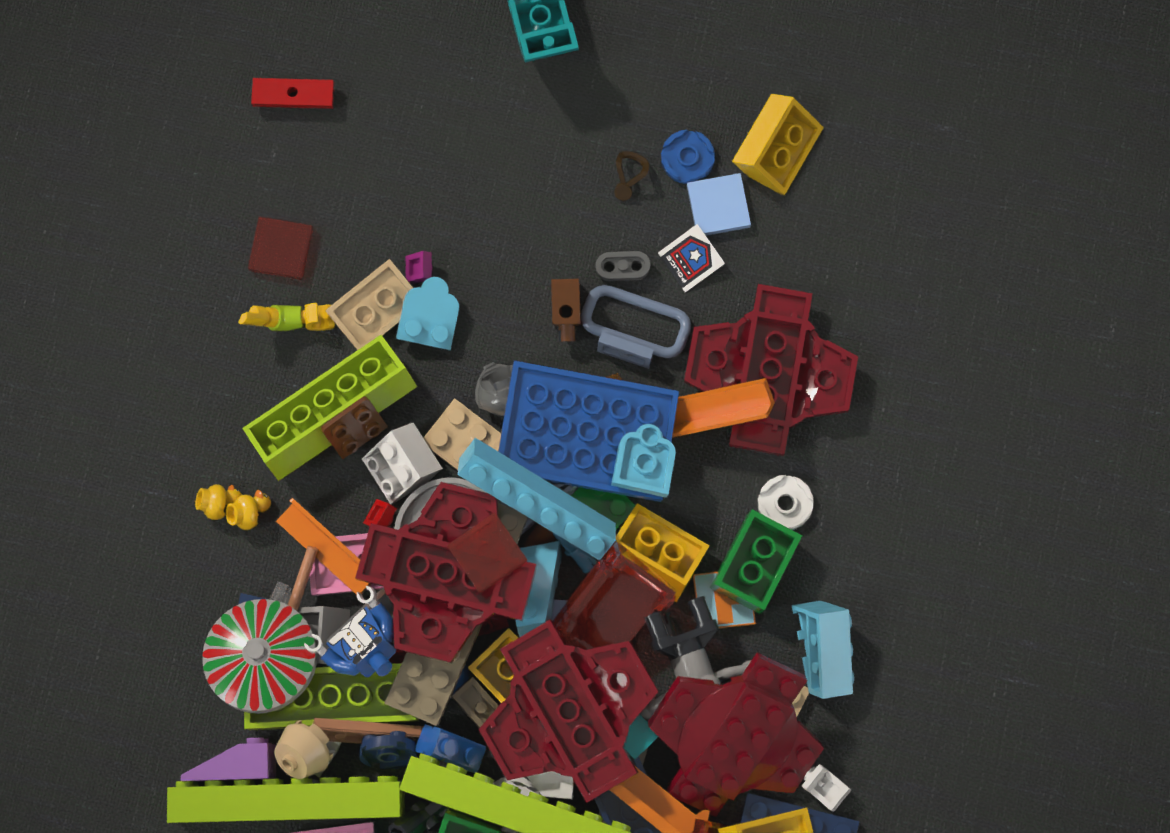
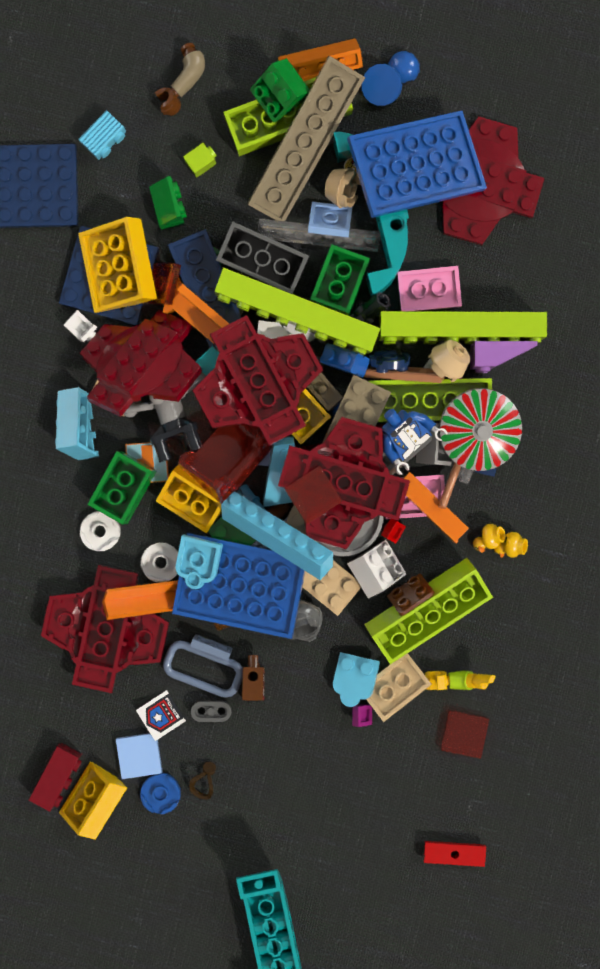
camera: 175 degrees right, 10 degrees up
(699, 479) = (149, 558): none -> white tile
(828, 171) = (56, 777): none -> dark red brick

